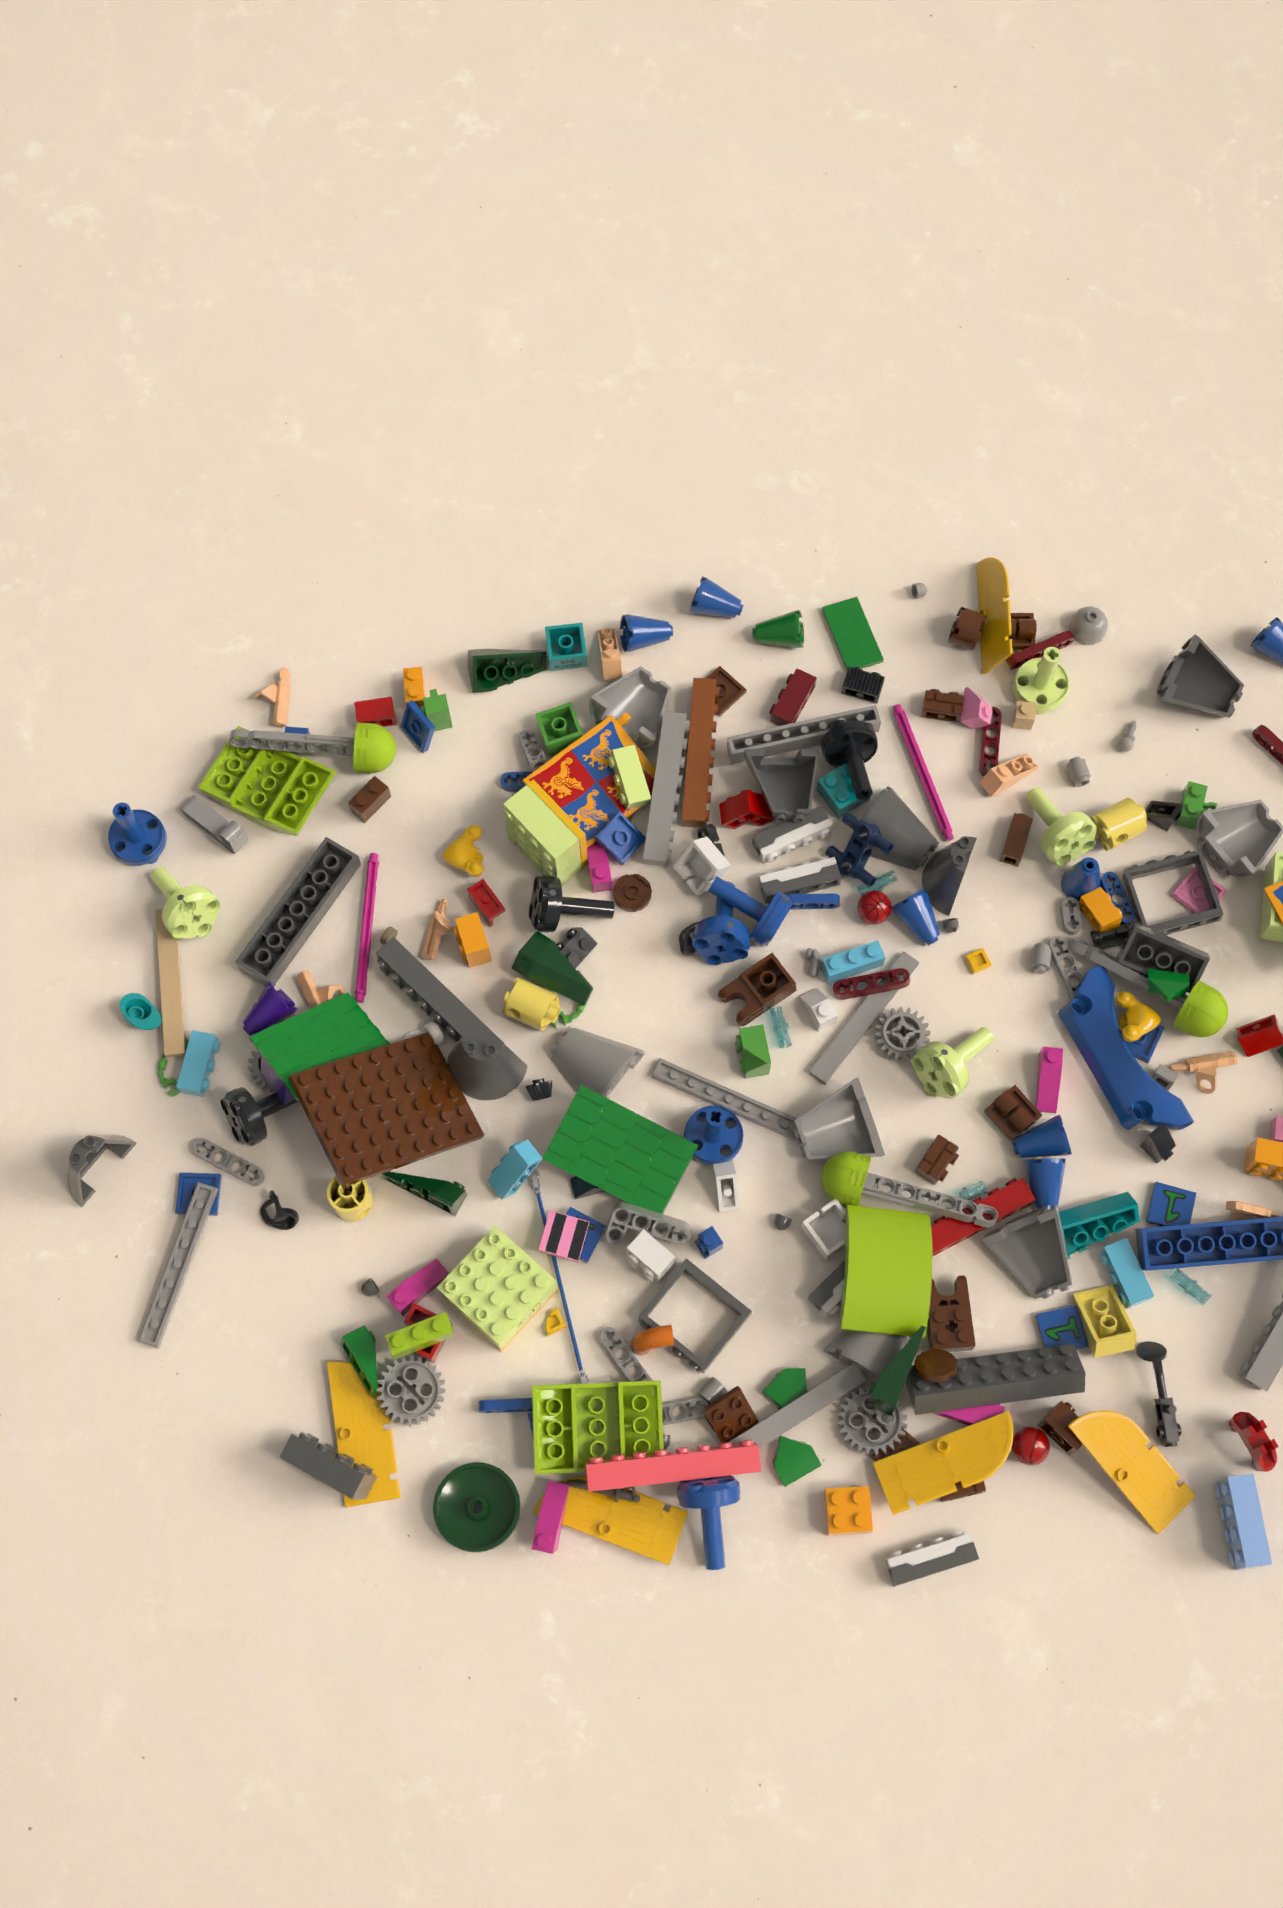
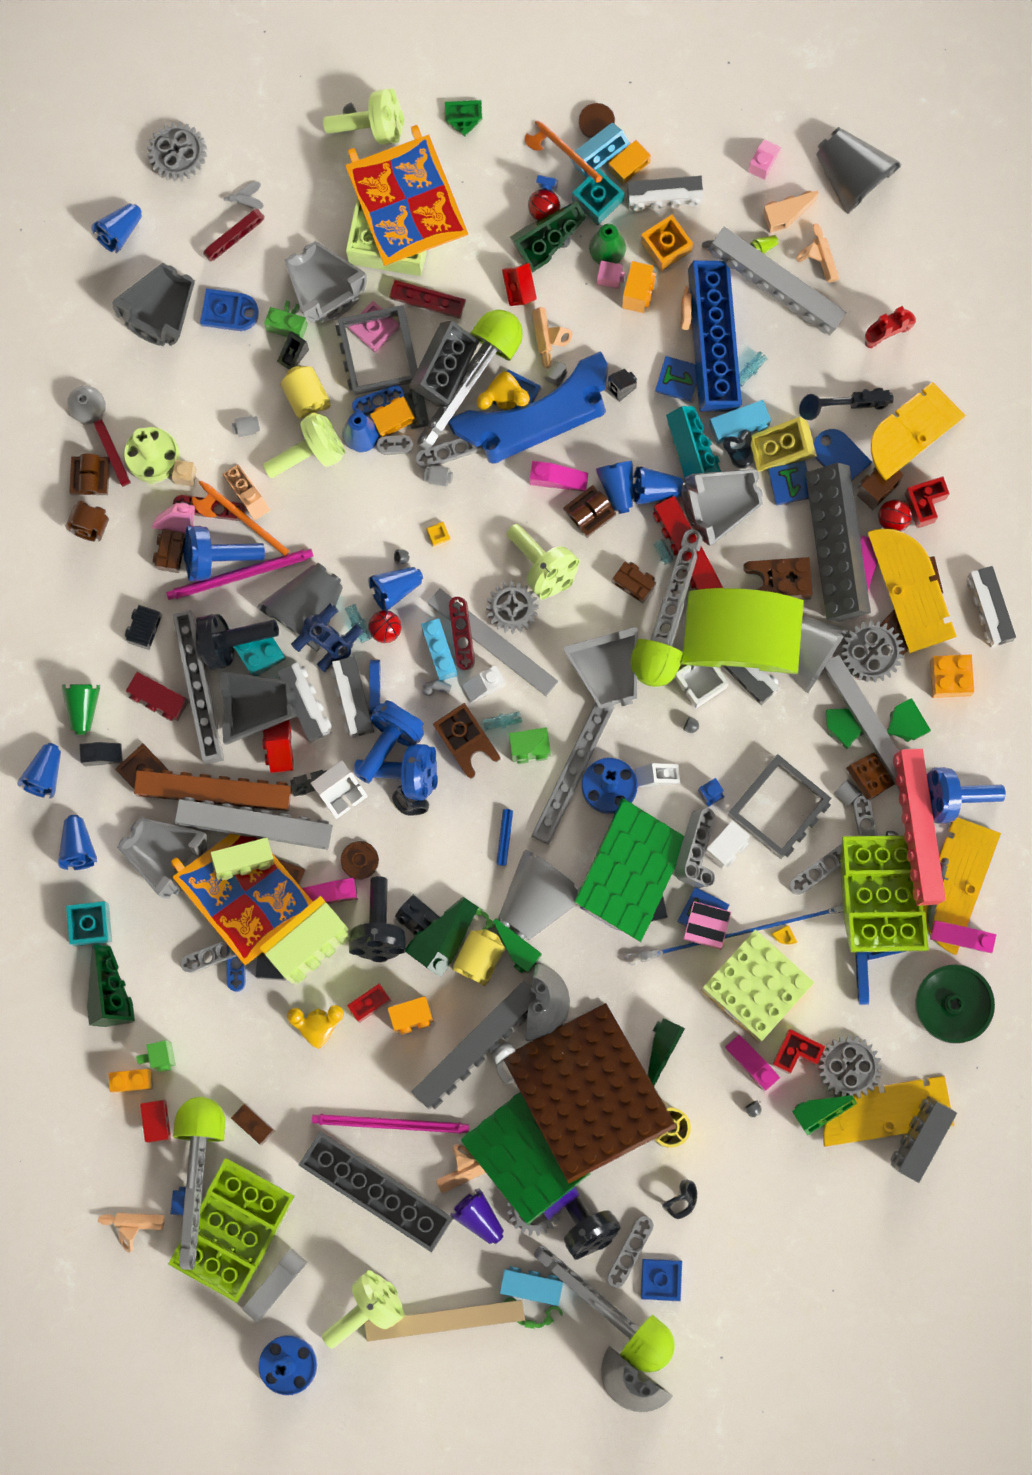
camera: 85 degrees left, 10 degrees up
(129, 1174) = (649, 1346): none -> piece
(139, 1012) = (479, 1347): teal piece -> none
(178, 1265) = (731, 1294): light grey tile -> none
(388, 934) = (401, 1100): dark tan tile -> none
(417, 726) = (175, 1075): blue tile -> none
(420, 1335) = (807, 1055): lime brick -> none
(438, 926) = (394, 1052): light nougat piece -> none
(514, 1169) = (645, 970): medium azure brick -> none
(538, 1046) = (520, 952): none -> green slope
(539, 1089) = (562, 949): black piece -> none
(559, 727) = (183, 929): bright green slope -> none
(609, 654) = (96, 880): light nougat slope -> none
(620, 838) = (304, 870): blue tile -> none
(652, 1339) = (804, 844): orange cylinder -> none
(657, 1032) = (504, 838): none -> blue axle
(734, 651) = (100, 753): none -> black slope
(852, 634) = (84, 635): green tile -> none
(891, 1381) = (847, 629): dark green wedge -> none
(918, 590) = (38, 567): light grey hinge -> none
(935, 1365) = (829, 591): reddish brown tile -> none
(940, 728) = (200, 553): none -> blue piece
(945, 873) = (352, 555): dark grey cone -> none
(988, 735) = (204, 508): none -> orange piece
(992, 596) = (54, 493): yellow door -> none
(1016, 839) = (315, 489): reddish brown brick -> none
(1055, 1478) = (922, 500): none -> red brick
(1087, 1277) = (743, 456): none -> black piece
(1100, 1386) = (841, 451): none -> blue tile
(1127, 741) = (217, 379): light grey bar -> none
(1167, 984) = (473, 360): green slope -> none
(1201, 750) = (227, 310): none -> blue tile
(1234, 944) = (427, 299): none -> dark red plate
(1243, 1522) = (958, 343): light blue brick -> none

